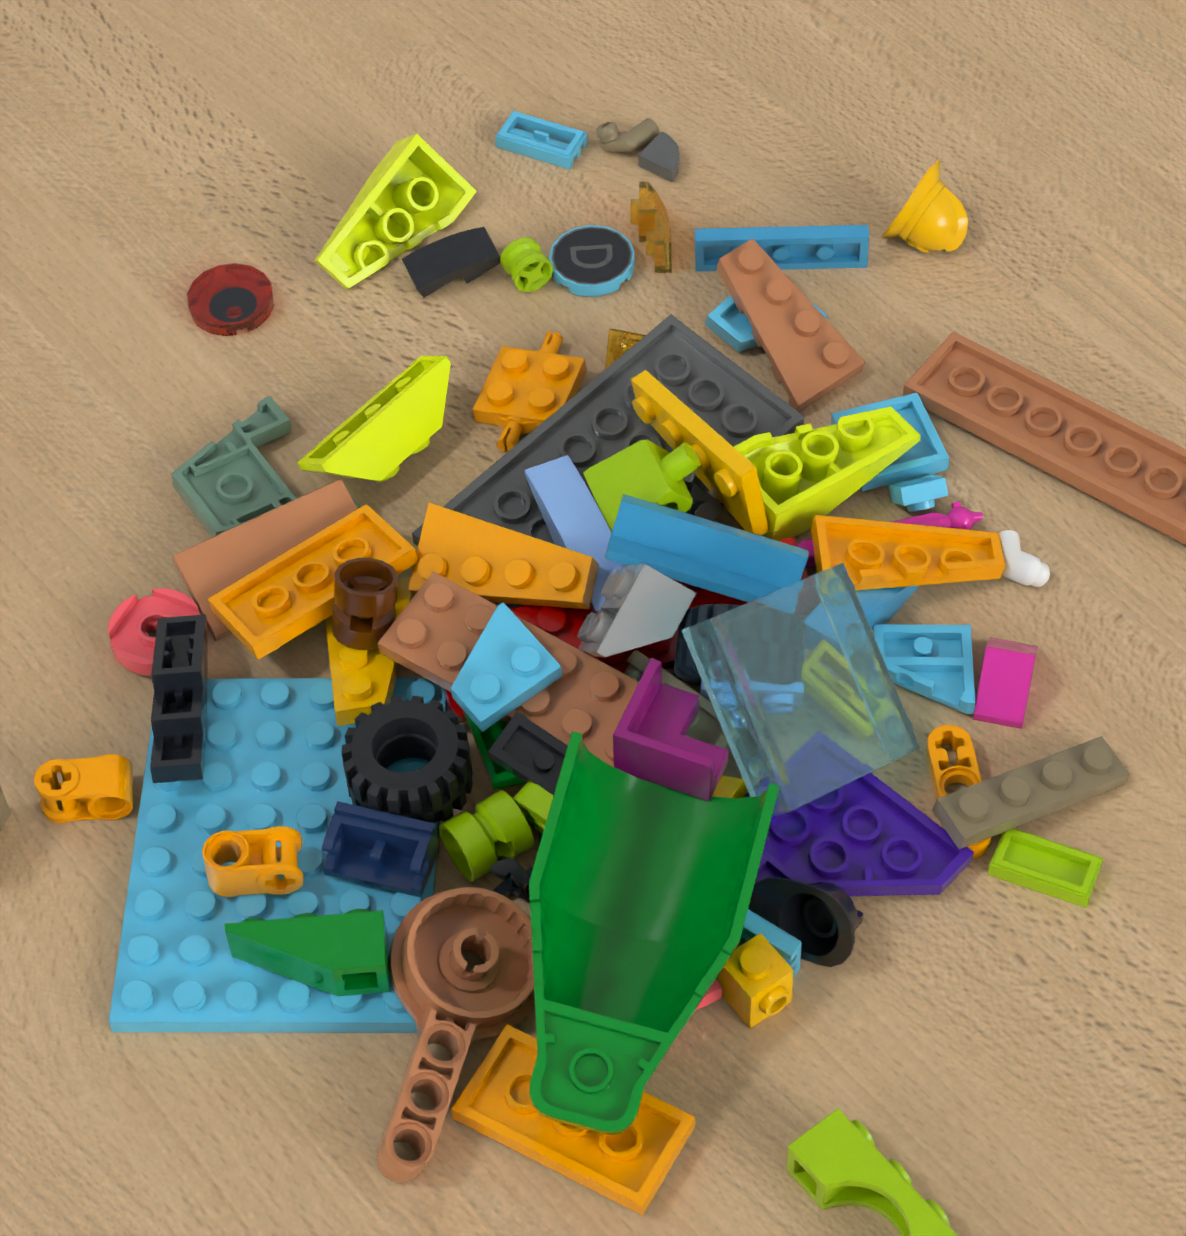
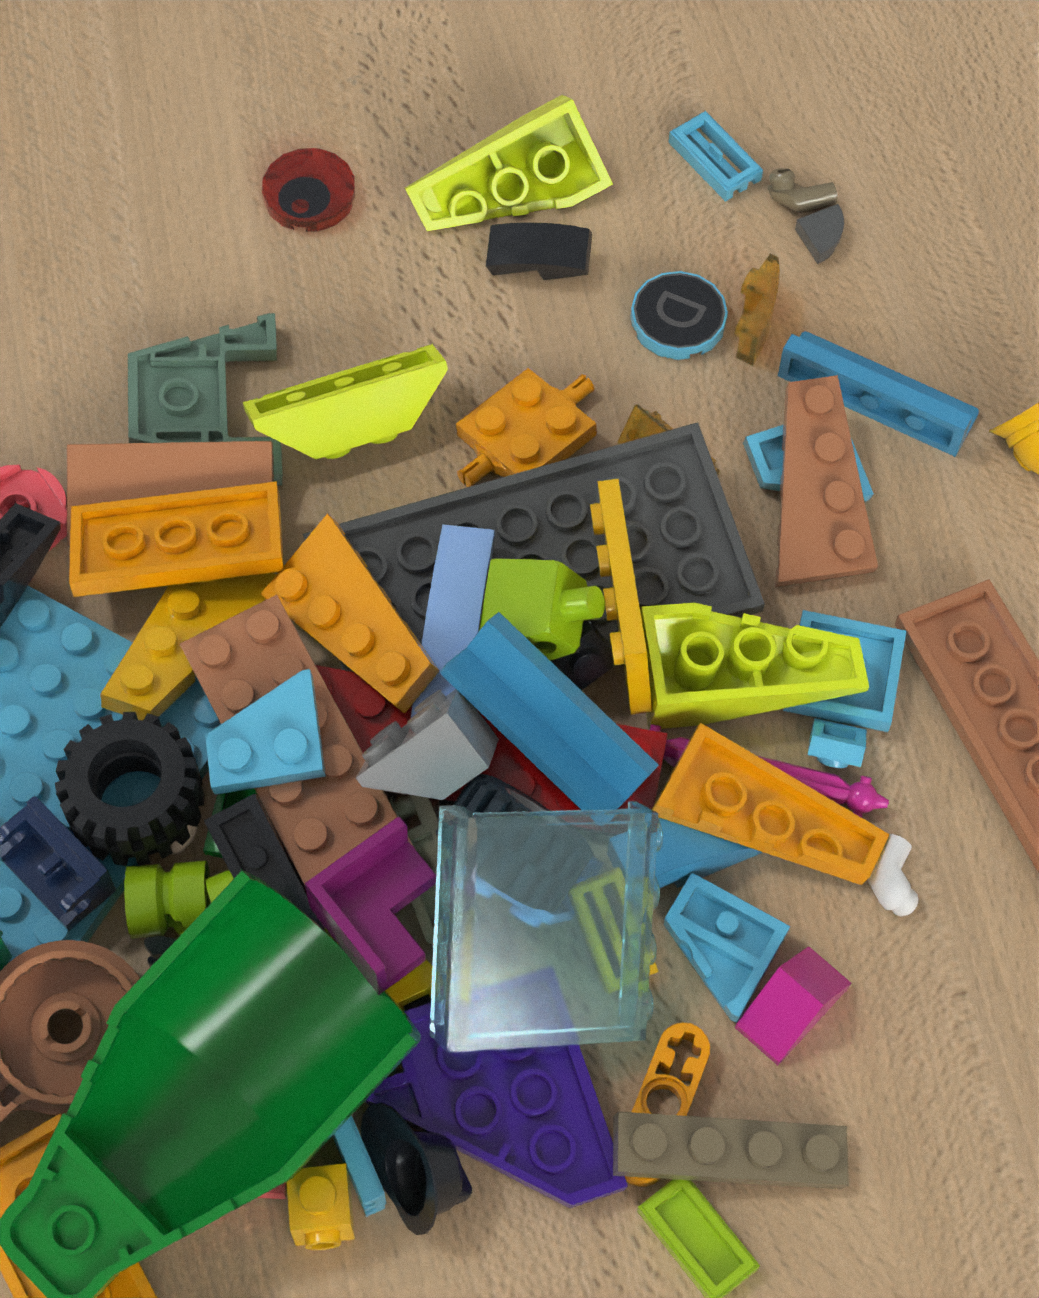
camera: 25 degrees right, 10 degrees up
(363, 602) = (193, 591): reddish brown wheel -> none
(526, 264) = (607, 289): lime wheel -> none

